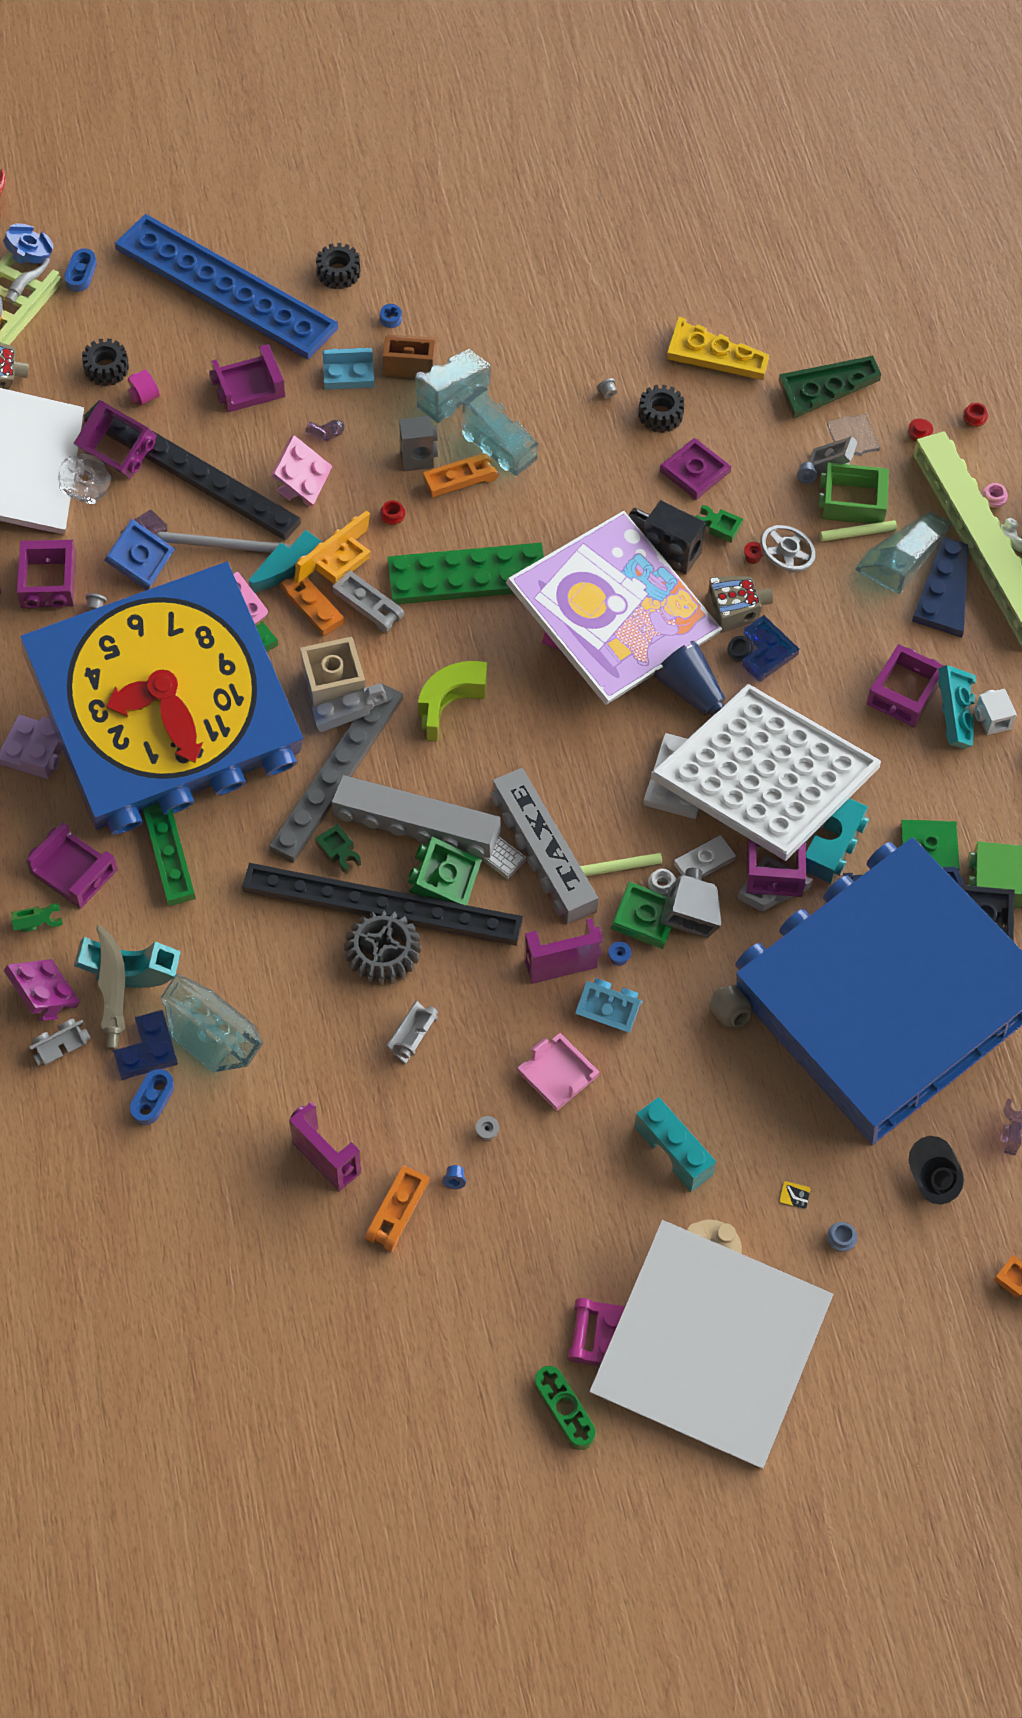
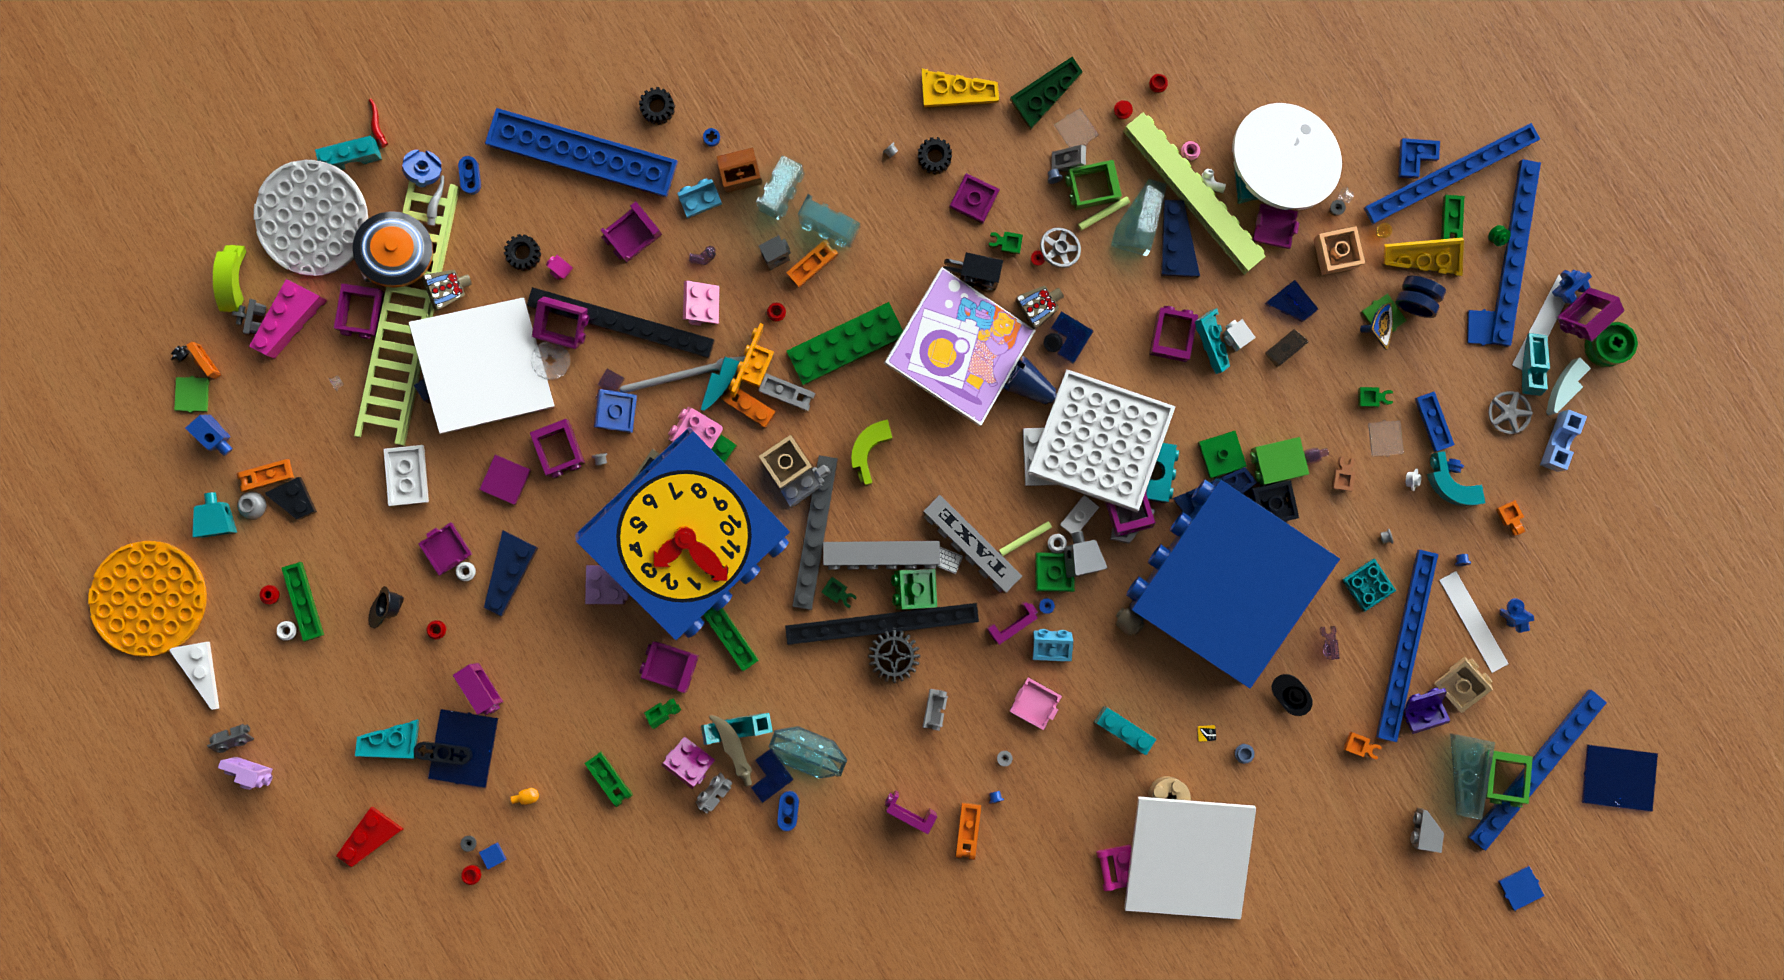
camera: 20 degrees left, 25 degrees up
(583, 1422) = (1126, 926): green beam -> none

